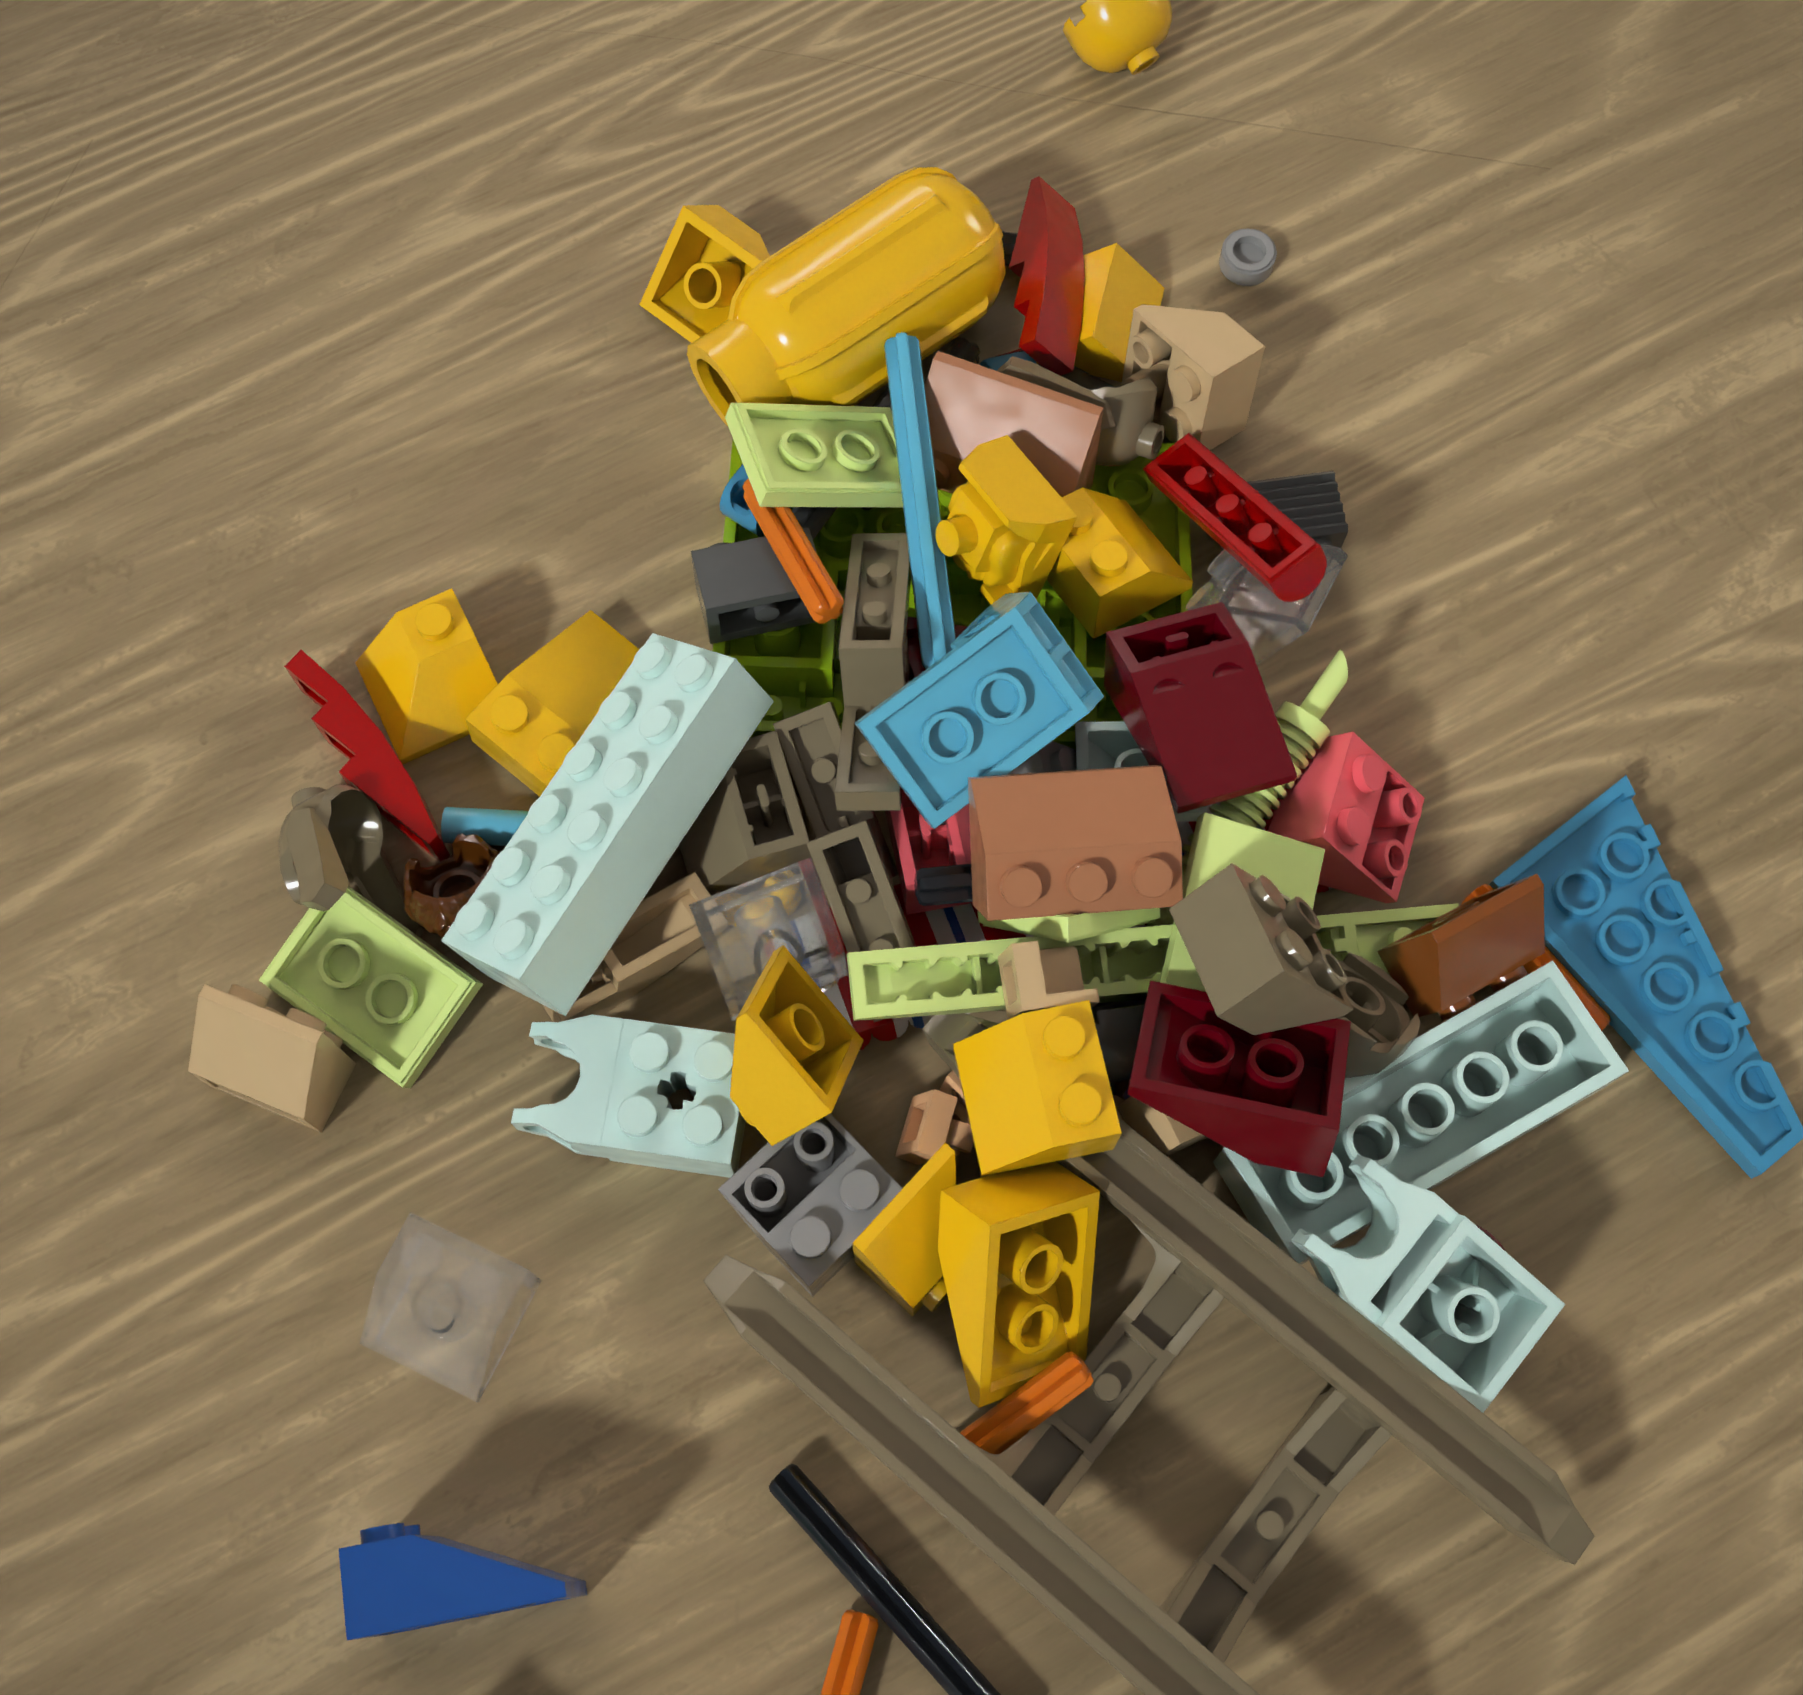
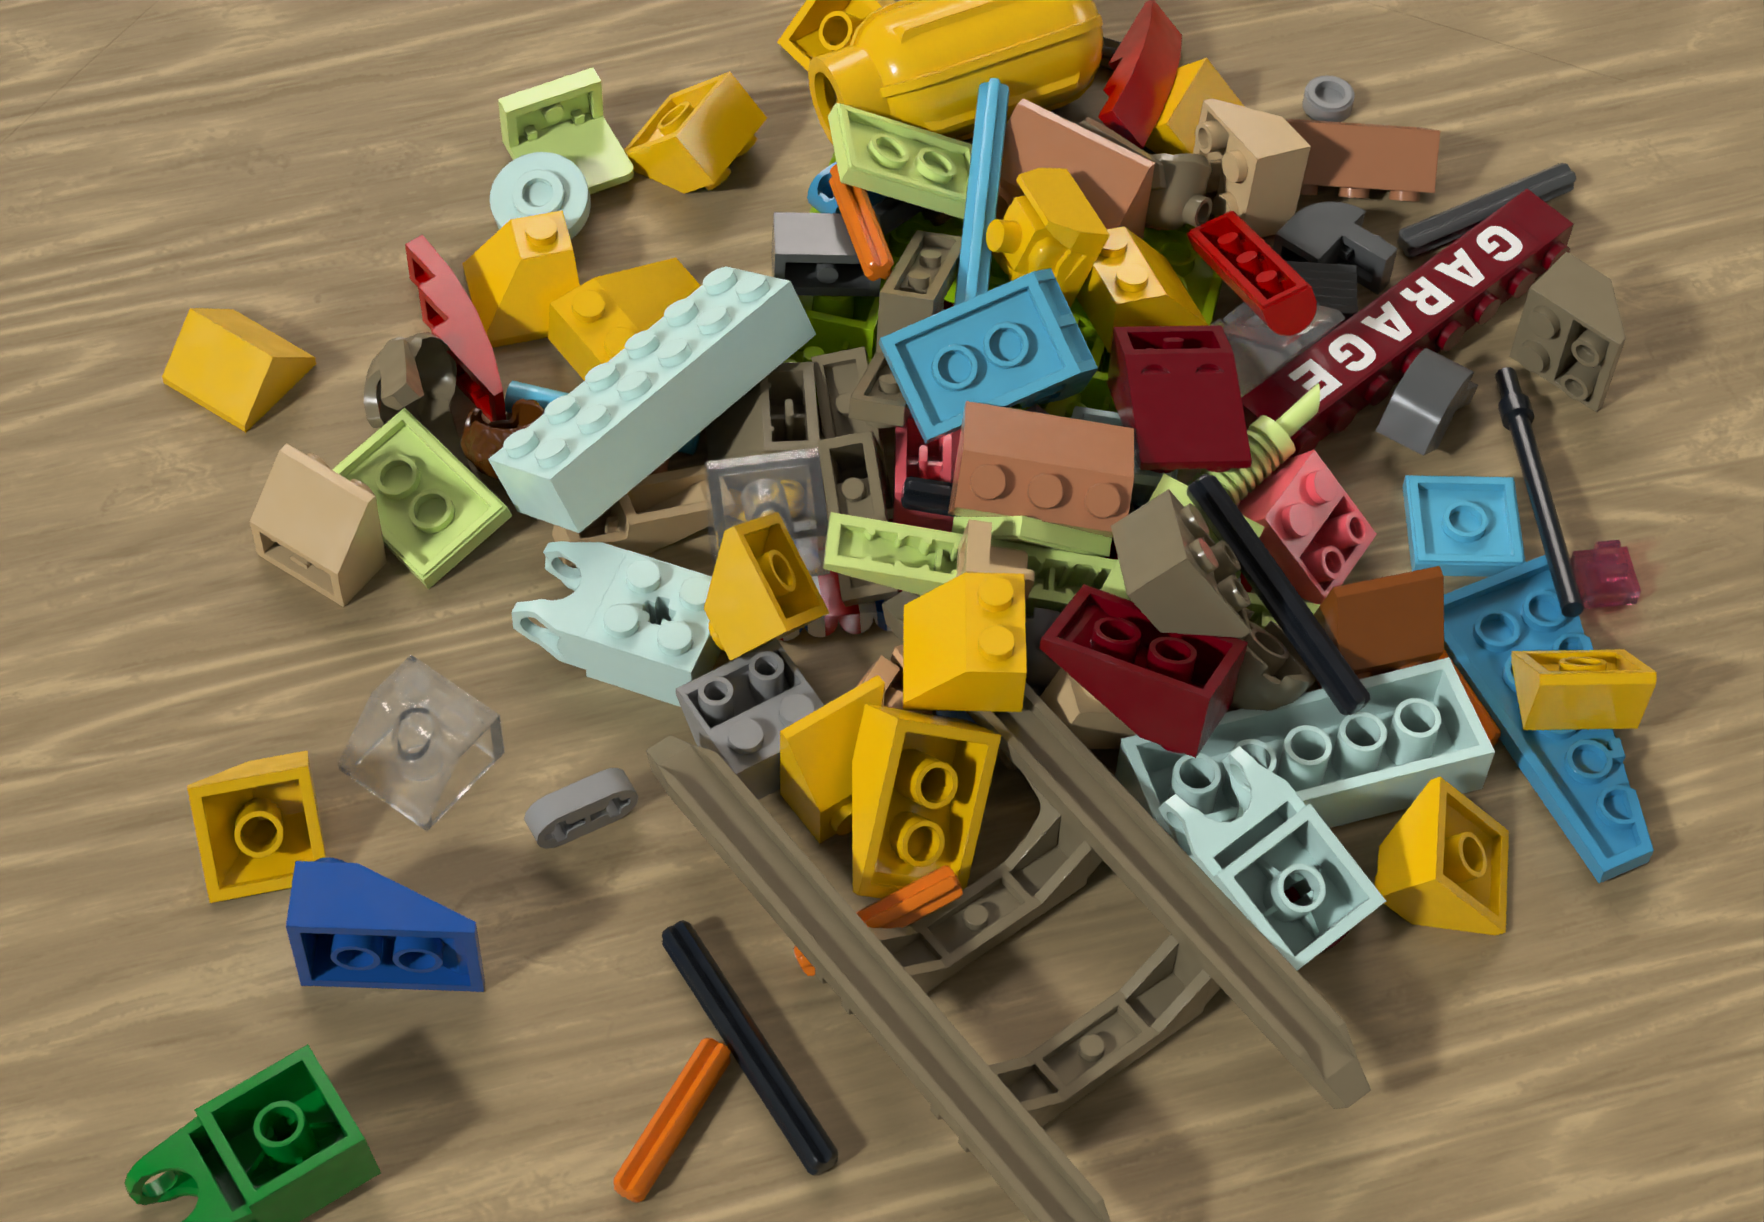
camera: 10 degrees right, 15 degrees down
(128, 849) = (233, 365): none -> yellow slope
(289, 1456) = (256, 825): none -> yellow slope
(420, 558) = (541, 185): none -> light aqua piece
(433, 486) = (566, 121): none -> yellowish green bracket
(577, 448) = (697, 135): none -> yellow slope
(643, 1346) = (581, 808): none -> light grey beam
(1295, 436) = (1335, 236): none -> dark grey brick
(1311, 321) = (1368, 158): none -> nougat slope
(1362, 938) = (1279, 596): none -> black axle
(1413, 514) = (1422, 311): none -> dark red brick
(1445, 362) = (1462, 218): none -> dark grey axle
(1445, 626) = (1426, 401): none -> dark grey brick
(1509, 762) = (1463, 524): none -> medium azure tile
(1537, 614) = (1517, 417): none -> black bar
(1586, 508) = (1571, 331): none -> dark tan slope
(1592, 1203) = (1446, 864): none -> yellow slope
(1671, 794) = (1605, 575): none -> clear pink tile
(1693, 951) = (1581, 689): none -> yellow slope

